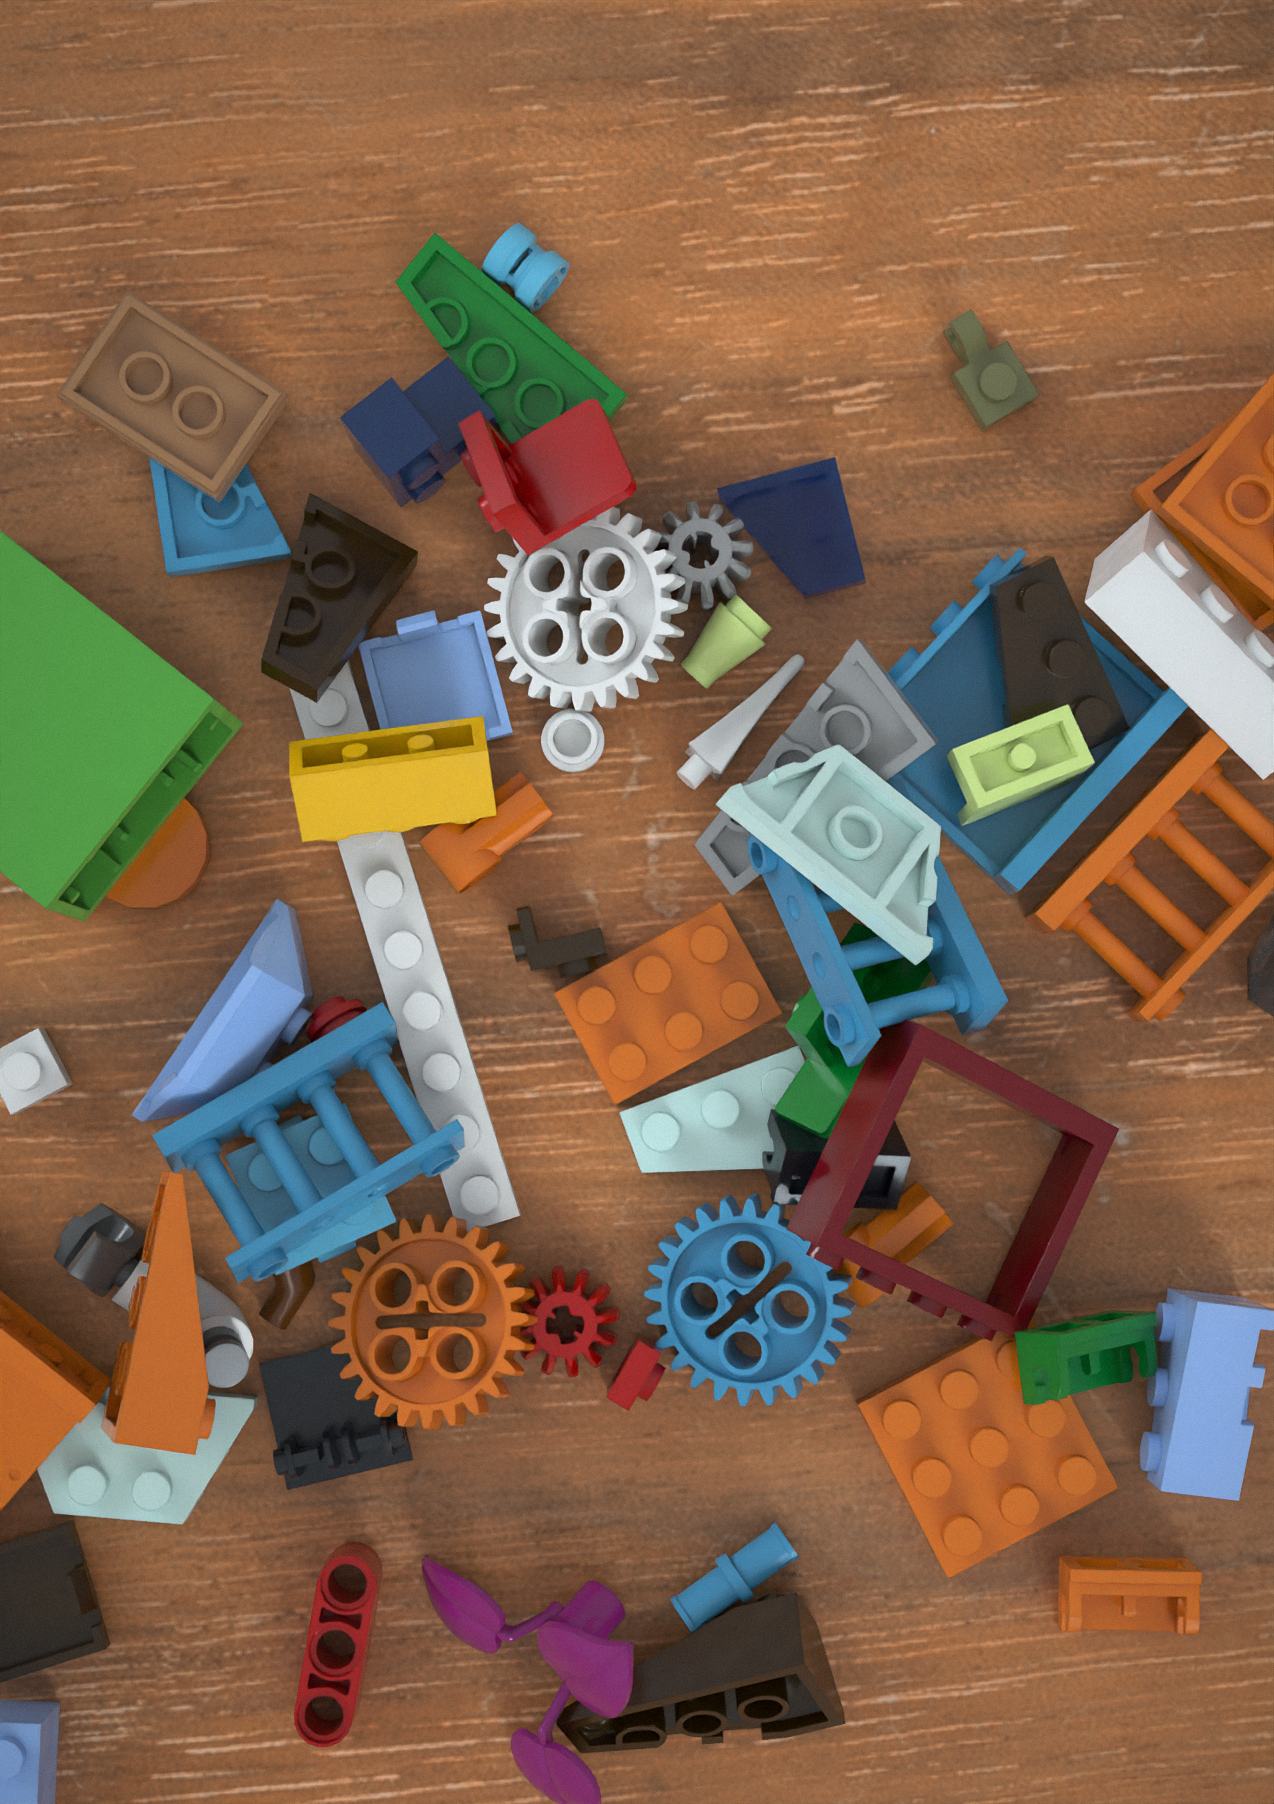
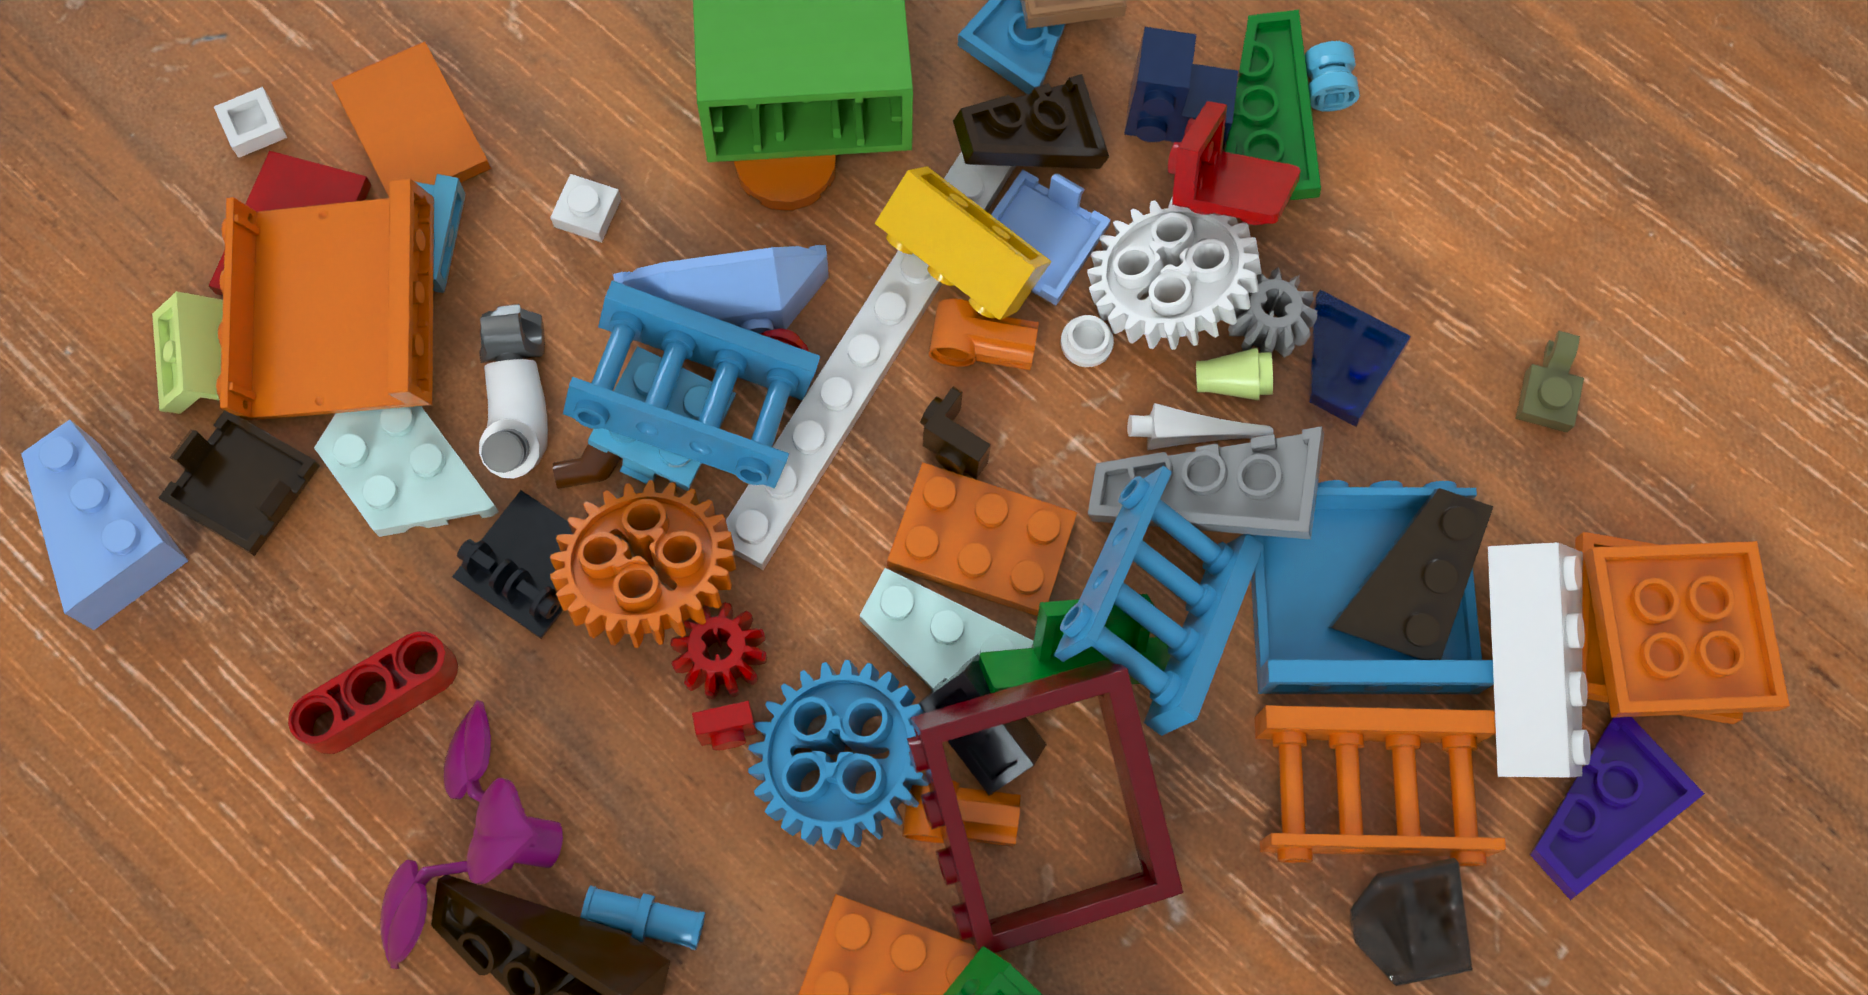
camera: 45 degrees right, 15 degrees down
(162, 1376) = (467, 408): orange wedge -> none
(849, 840) = (1197, 527): light aqua wing -> none
(1019, 763) = (1345, 609): yellowish green panel -> none

